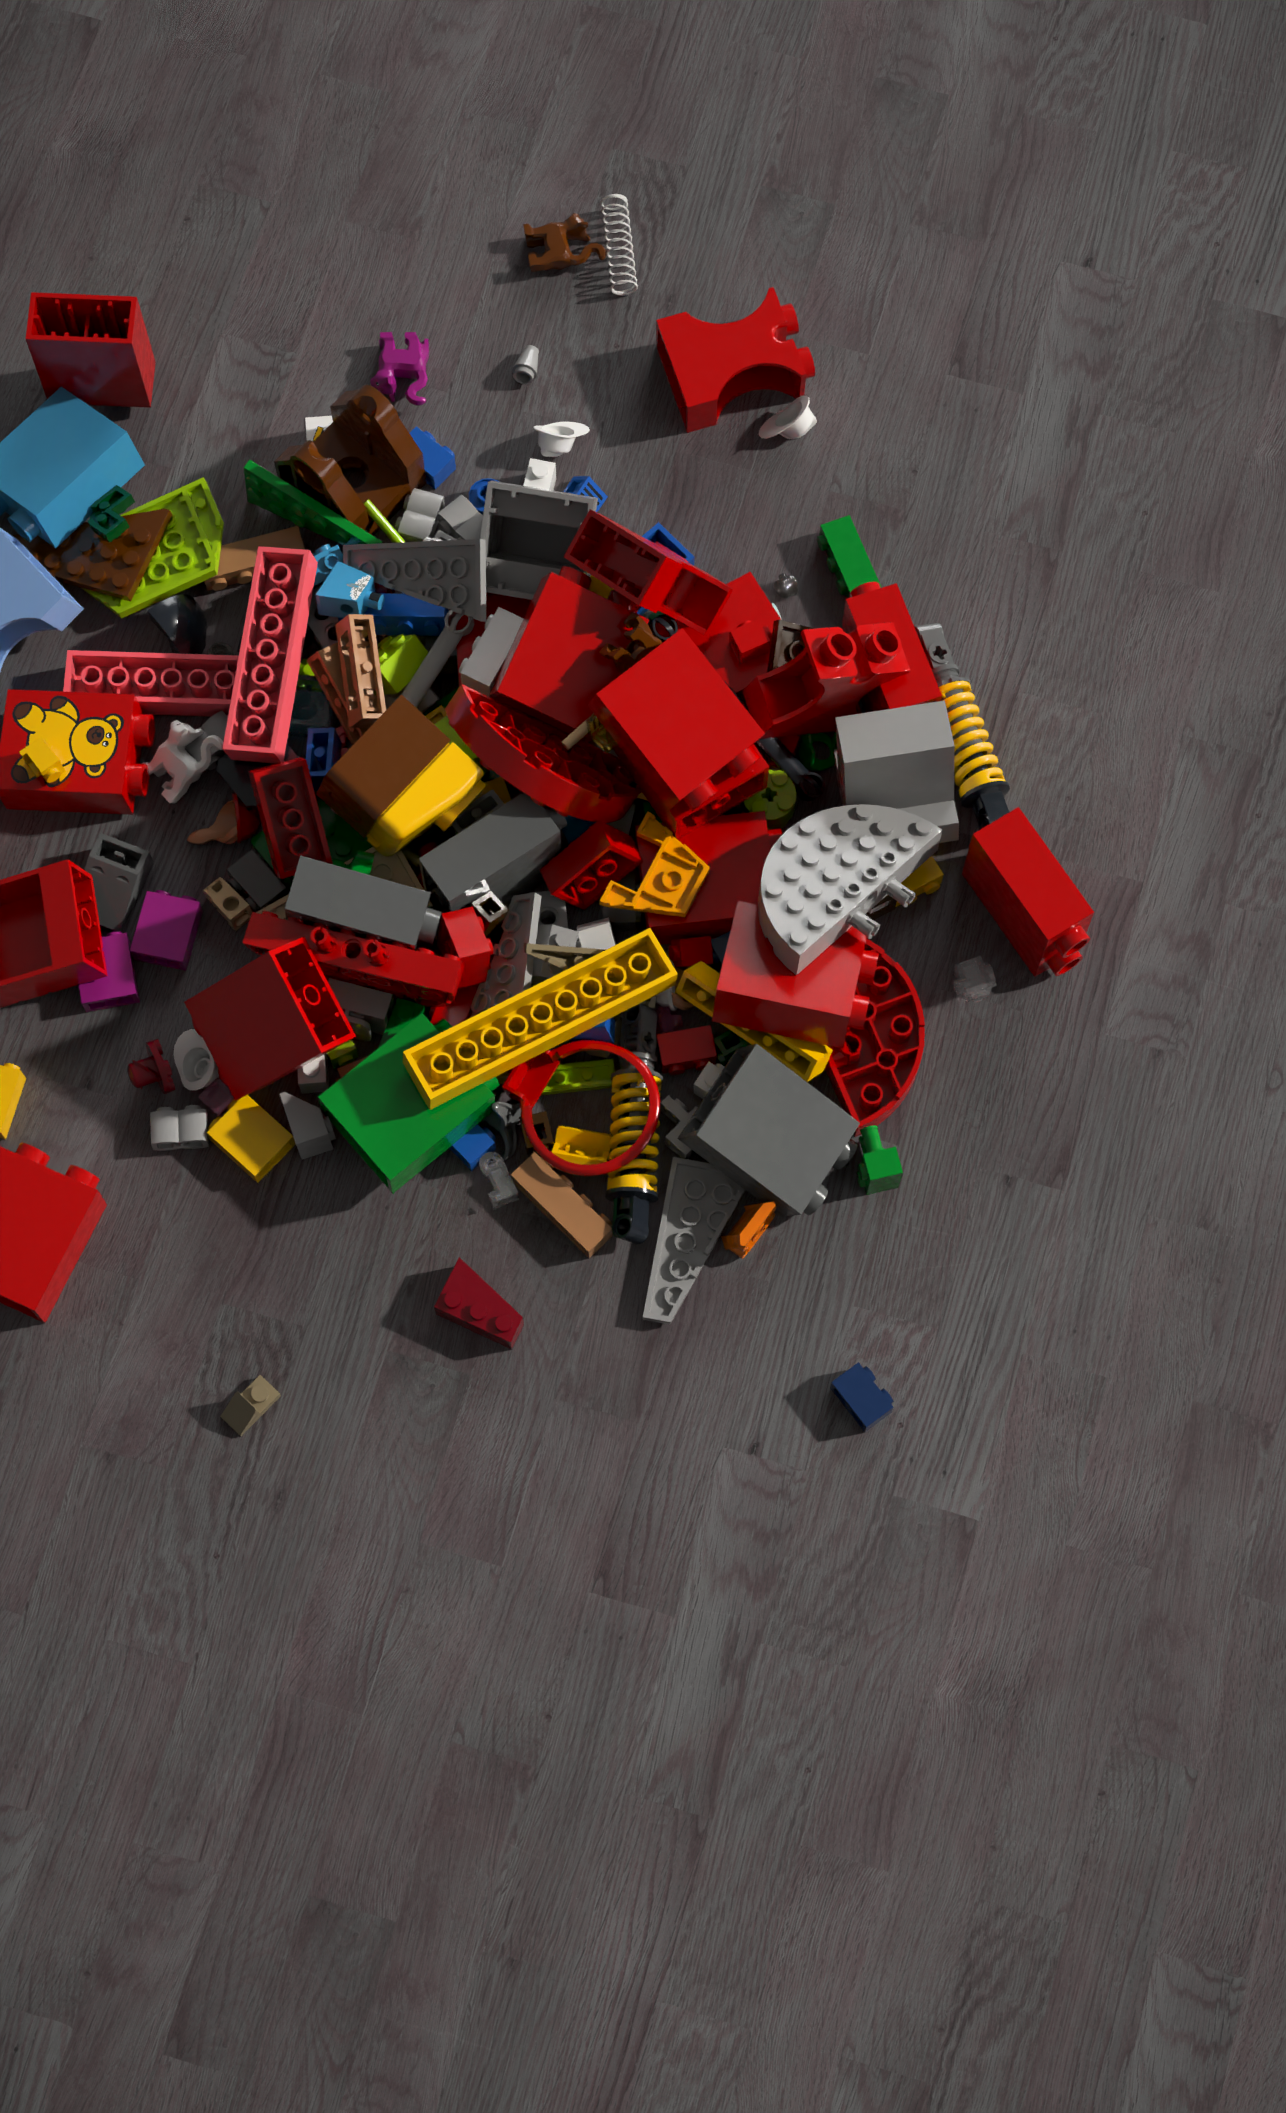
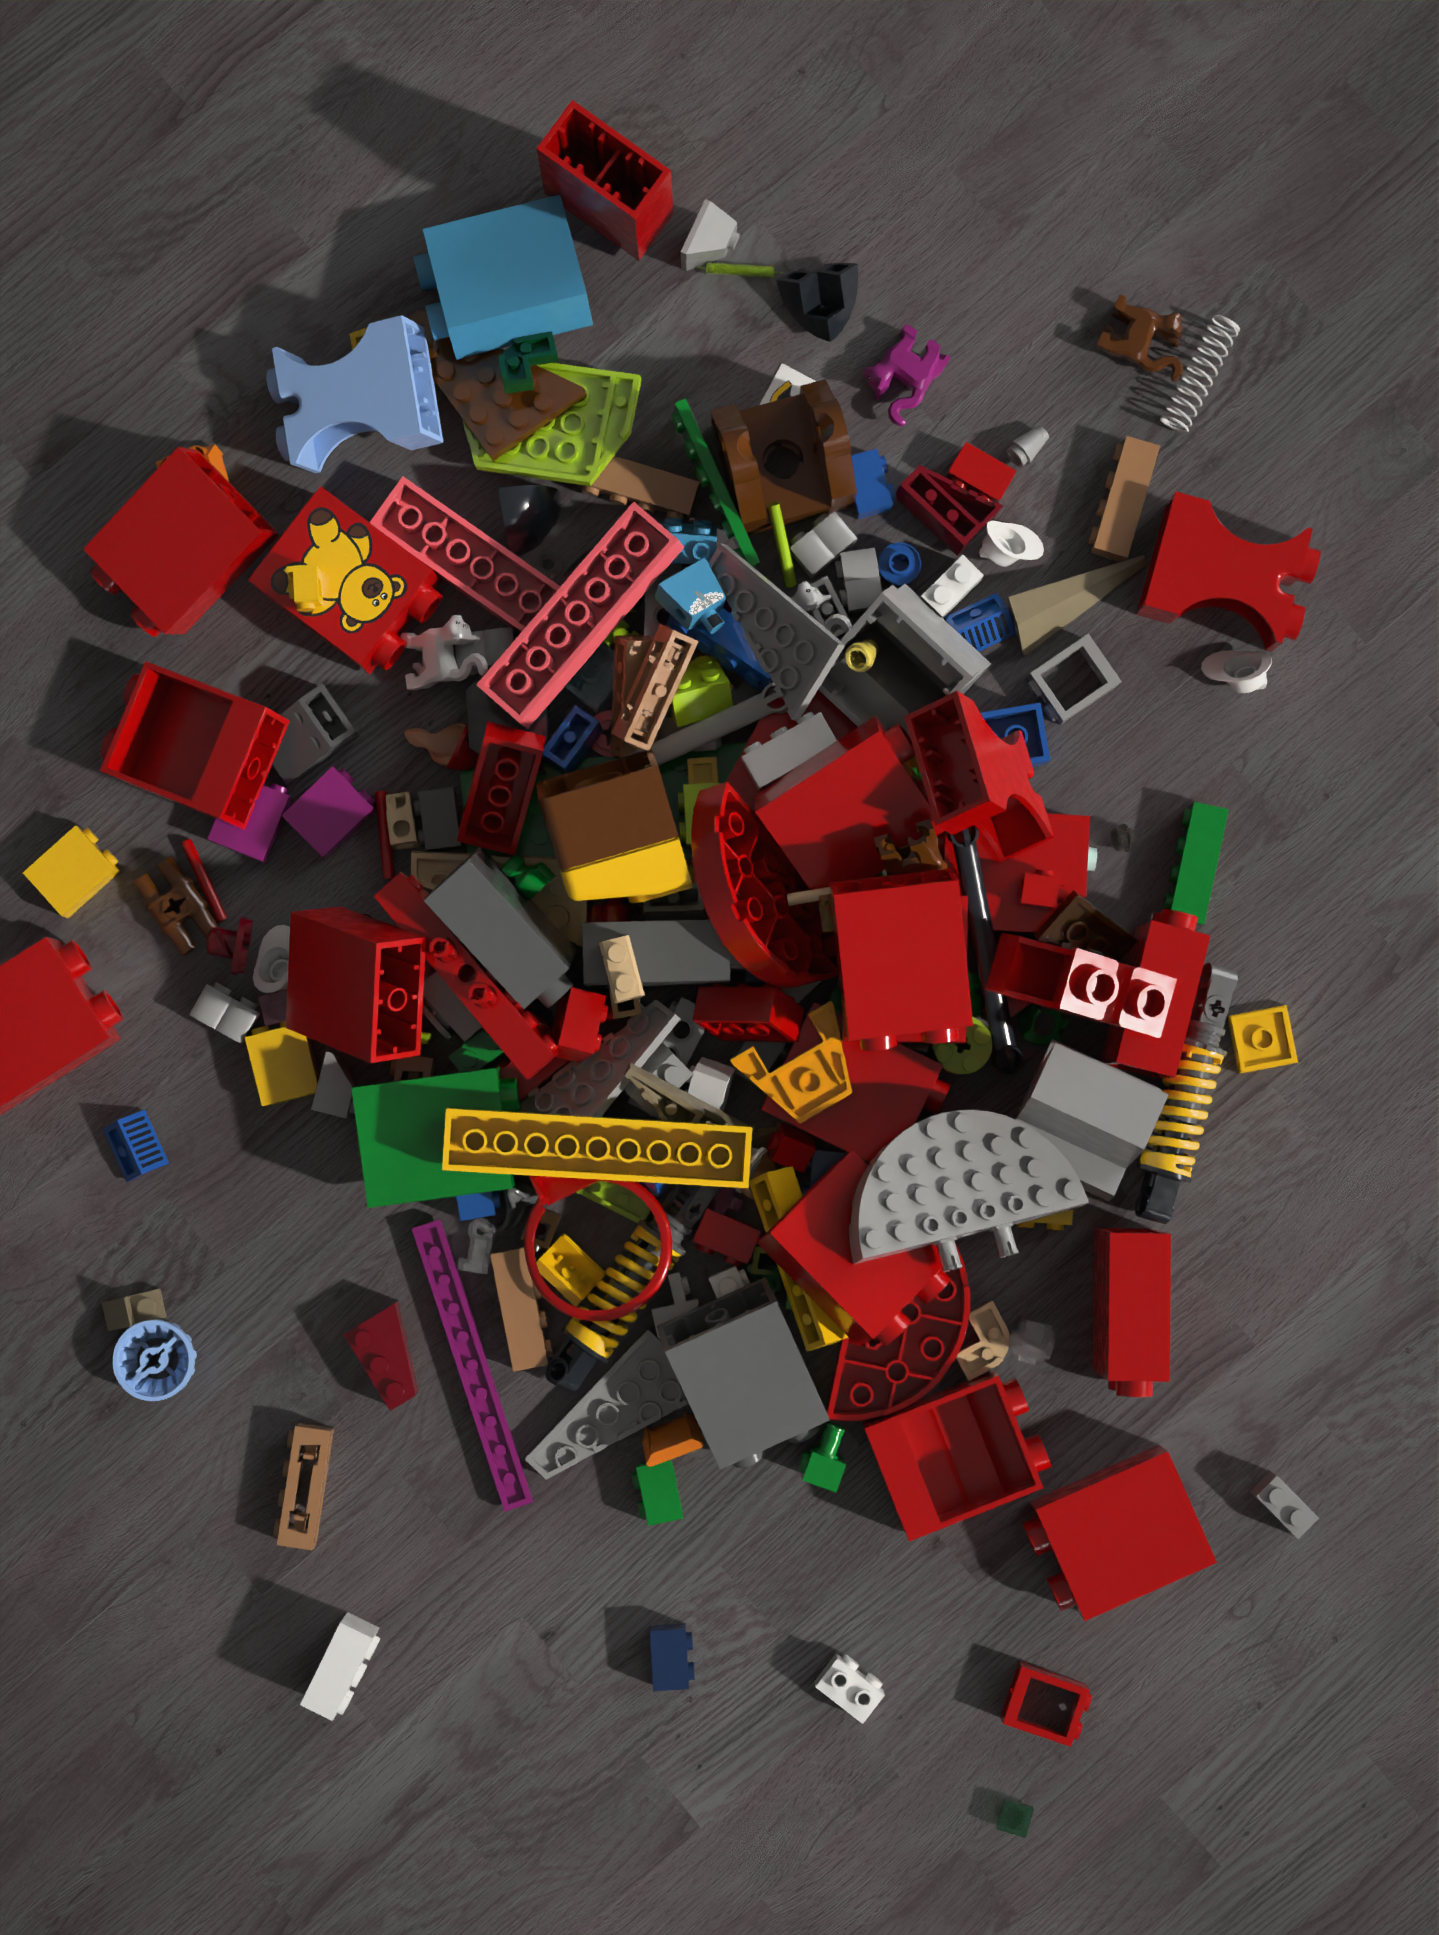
camera: 30 degrees right, 15 degrees up
(92, 1085) = (161, 904): none -> reddish brown pin
(97, 1042) = (204, 880): none -> red bar
(169, 1276) = (135, 1145): none -> blue panel
(193, 359) = (709, 237): none -> light grey slope
(221, 923) = (385, 847): none -> red bar
(232, 372) = (739, 269): none -> lime piece
(297, 1404) = (135, 1378): none -> light blue gear
(304, 354) = (821, 297): none -> black brick
(460, 1409) = (296, 1535): none -> medium nougat brick
(471, 867) = (621, 969): none -> tan brick
(495, 439) = (945, 508): none -> dark red wedge
(495, 549) = (861, 655): none -> light yellow cone
(505, 402) = (981, 473): none -> red brick
(553, 1273) = (472, 1365): none -> magenta plate
(604, 1570) = (341, 1667): none -> white brick
(621, 459) = (1049, 608): none -> dark tan wedge
(623, 358) = (1124, 499): none -> medium nougat brick
(679, 477) = (1098, 664): none -> light grey window
(765, 1274) = (659, 1493): none -> green brick
(945, 1004) = (992, 1342): none -> tan plate
(974, 1094) = (957, 1453): none -> red brick
(990, 663) = (1262, 1039): none -> yellow tile
(1018, 1328) = (850, 1687): none -> white brick
(1140, 1074) = (1119, 1534): none -> red brick
(1150, 1249) = (1016, 1695): none -> red window
(1216, 1346) = (1014, 1817): none -> clear green plate
(1248, 978) = (1284, 1505): none -> light grey brick

